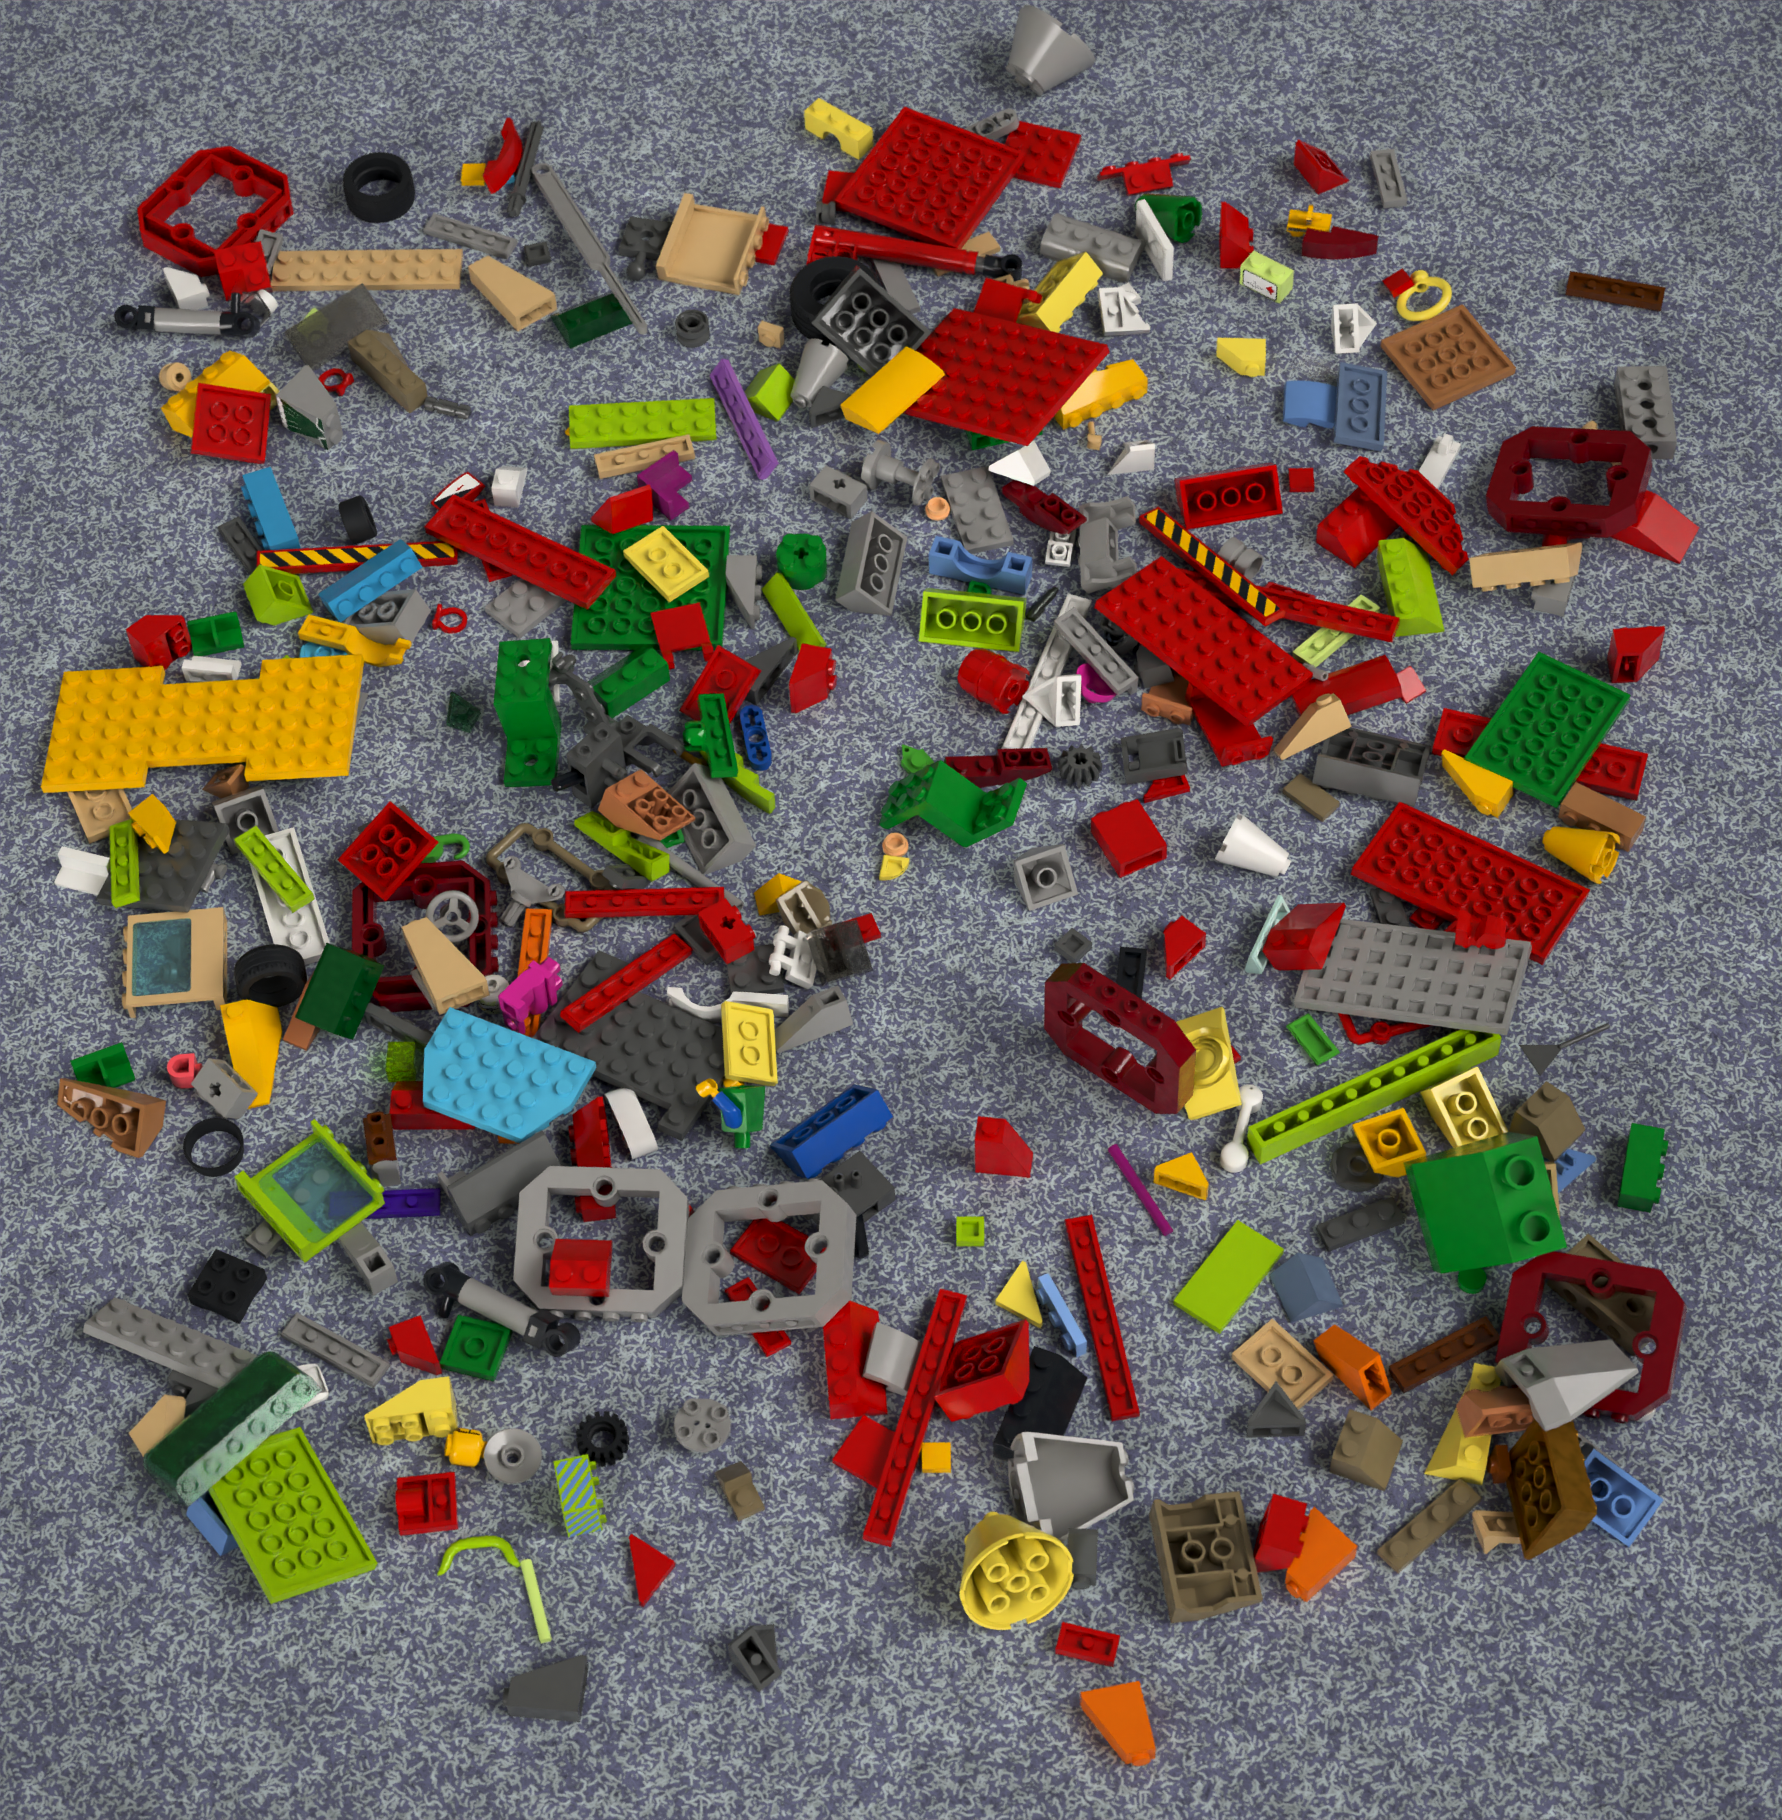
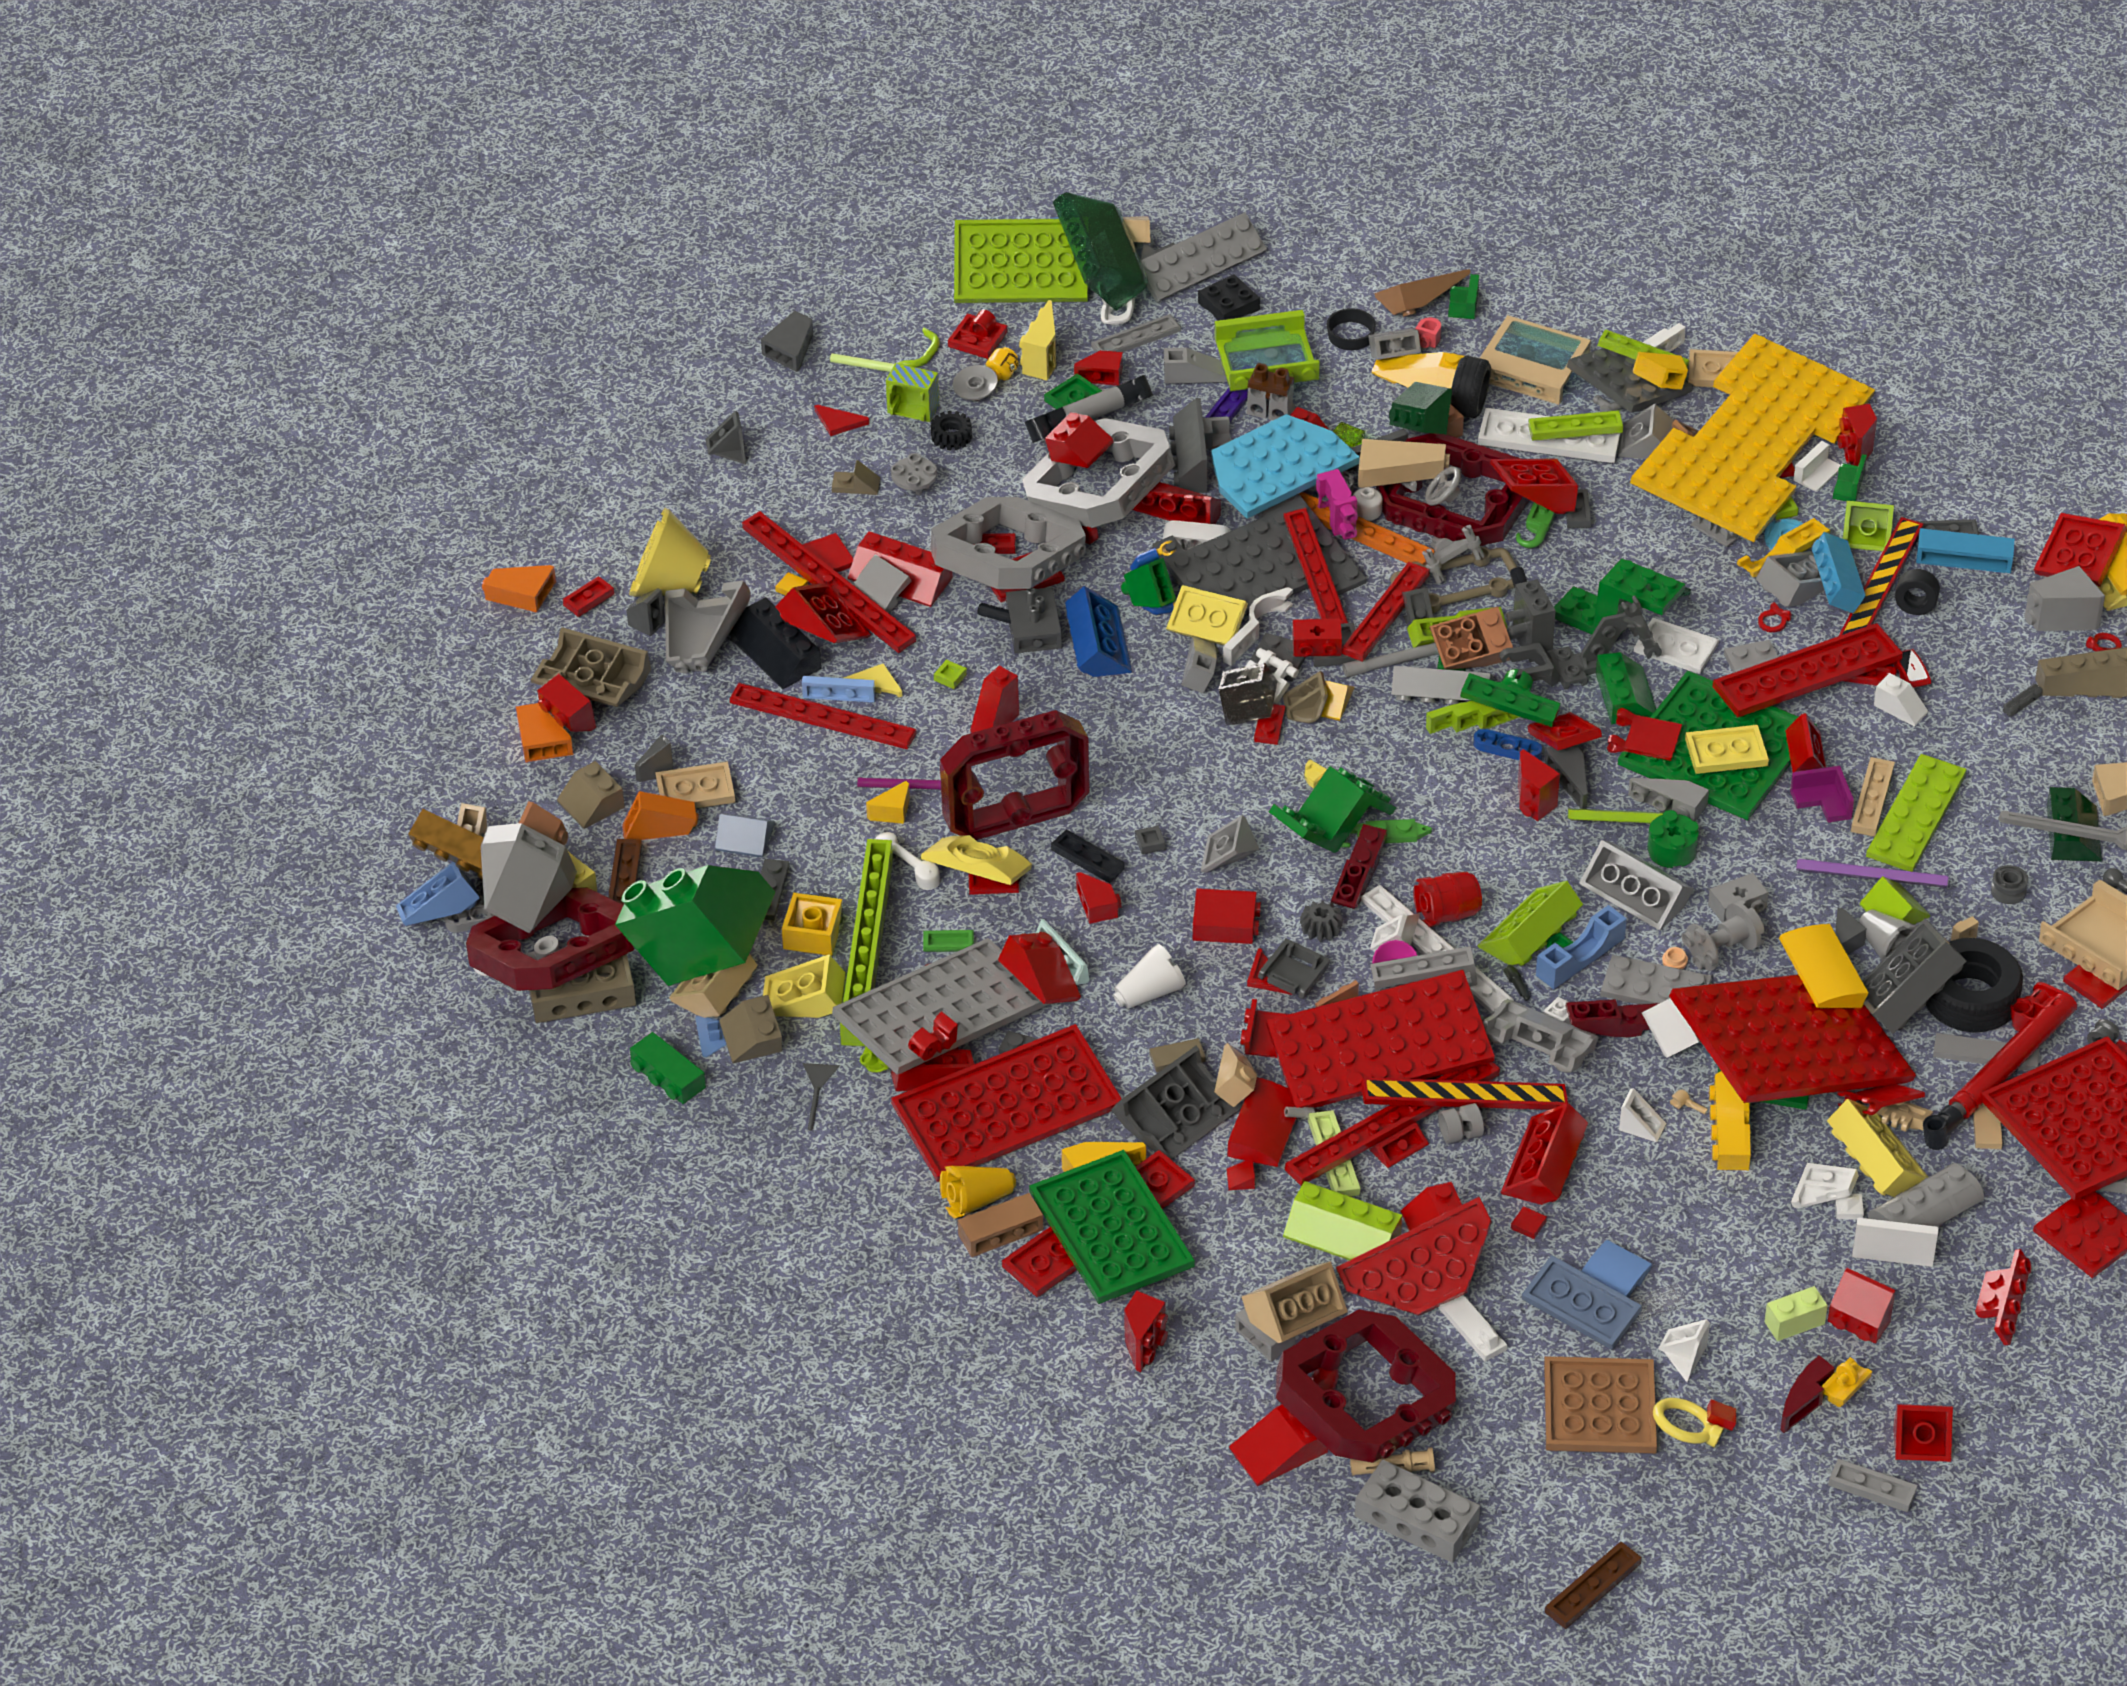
camera: 120 degrees right, 10 degrees down
(1175, 214) = (1926, 1277): green cone -> none
(1228, 1276) = (792, 797): lime tile -> none
(1243, 355) = (1705, 1249): light yellow slope -> none
(1429, 1525) = (507, 797): dark tan plate -> none

